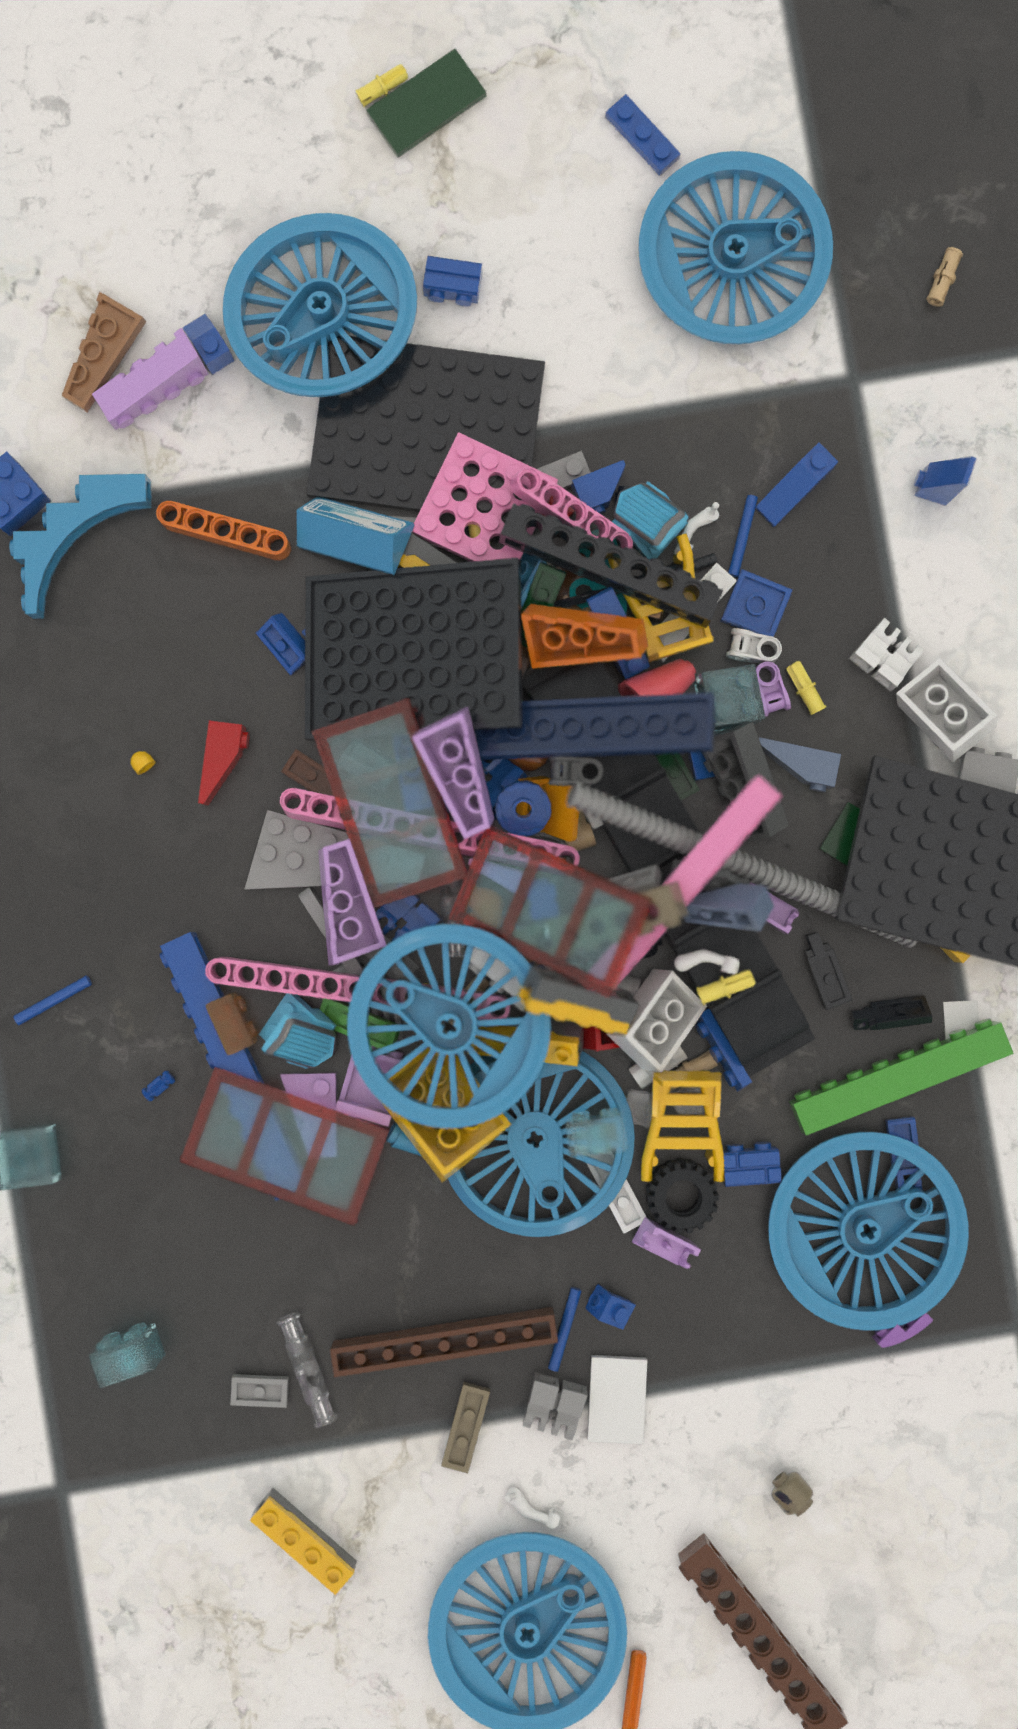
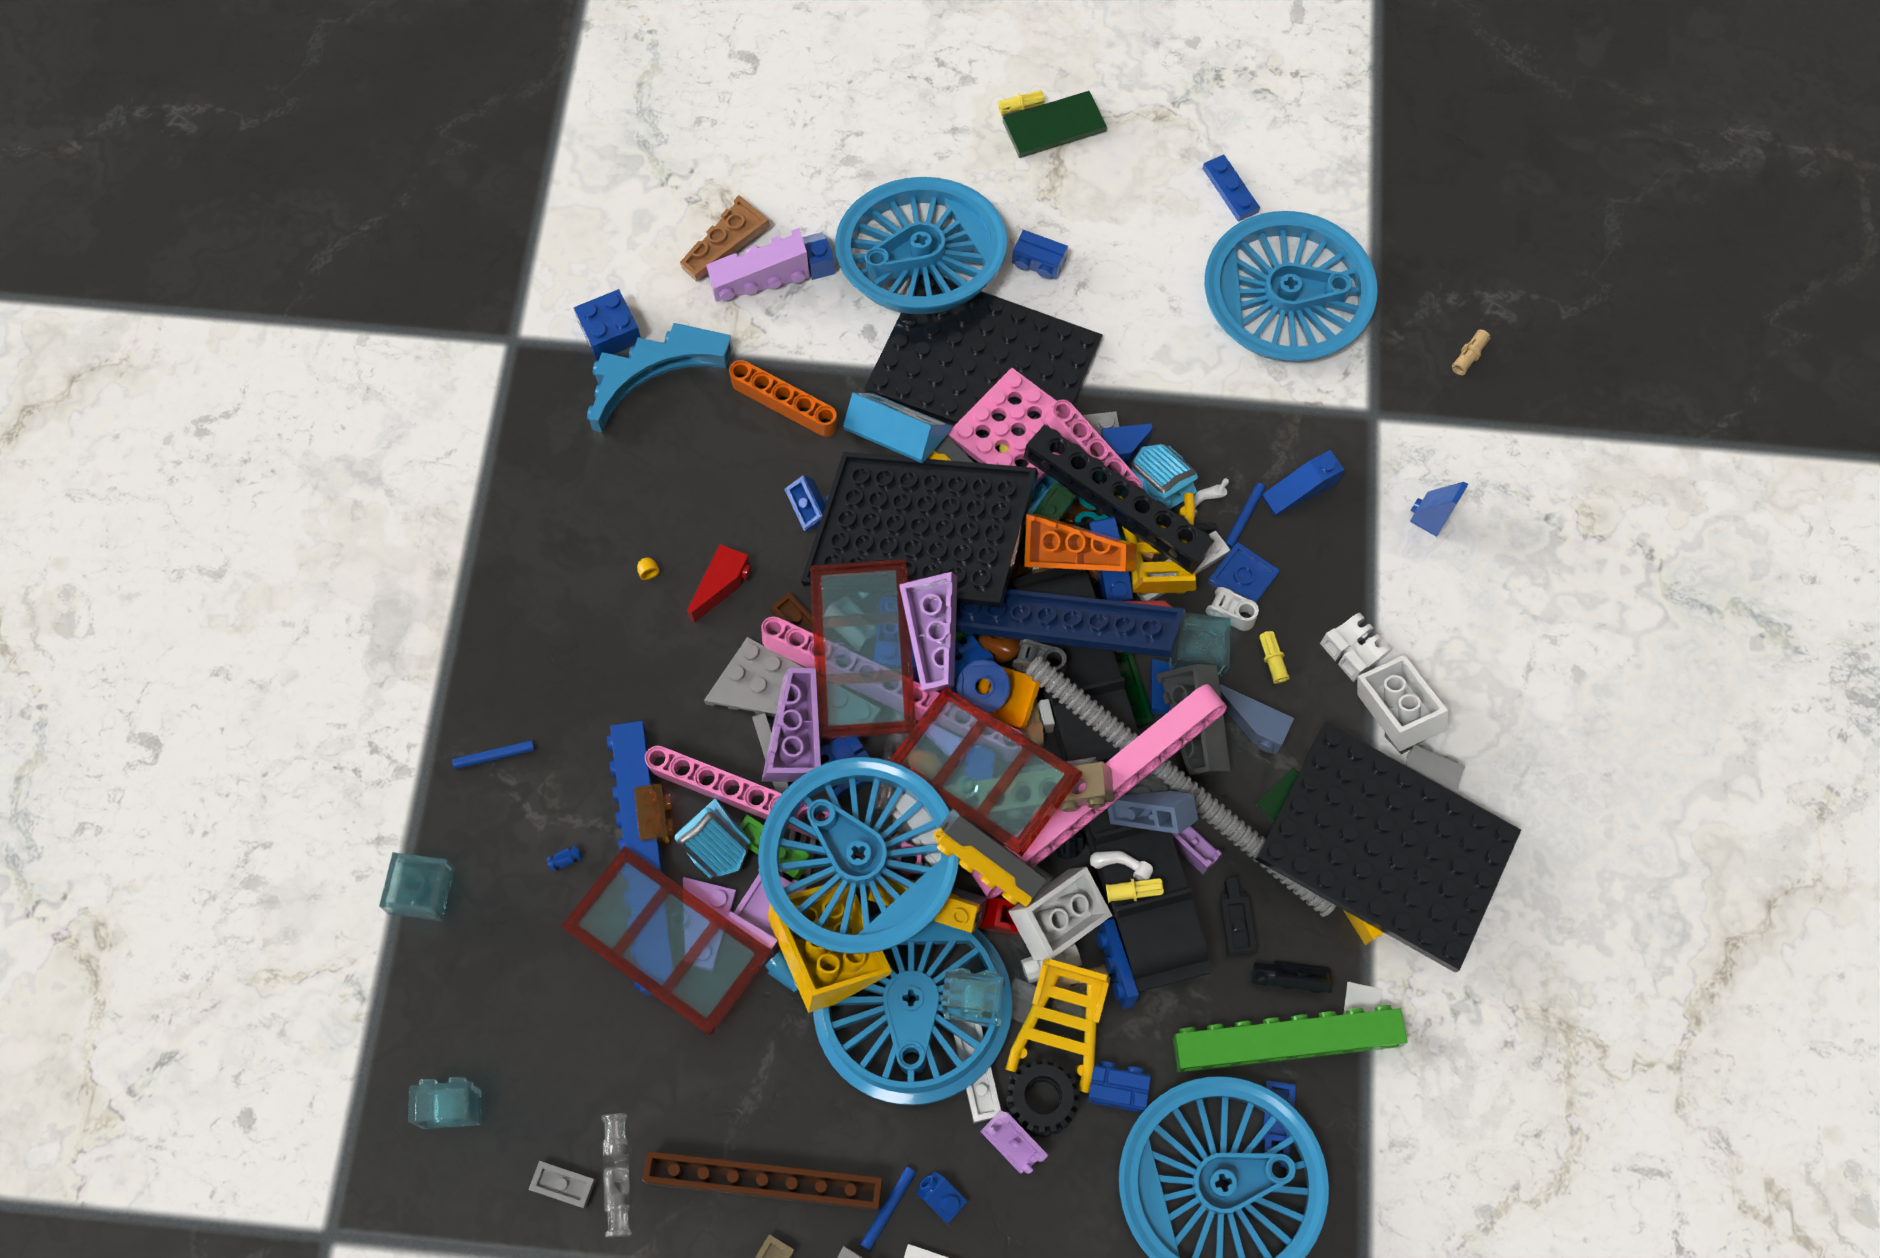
camera: 15 degrees right, 20 degrees down
(773, 689) = (1242, 650): lavender piece -> none

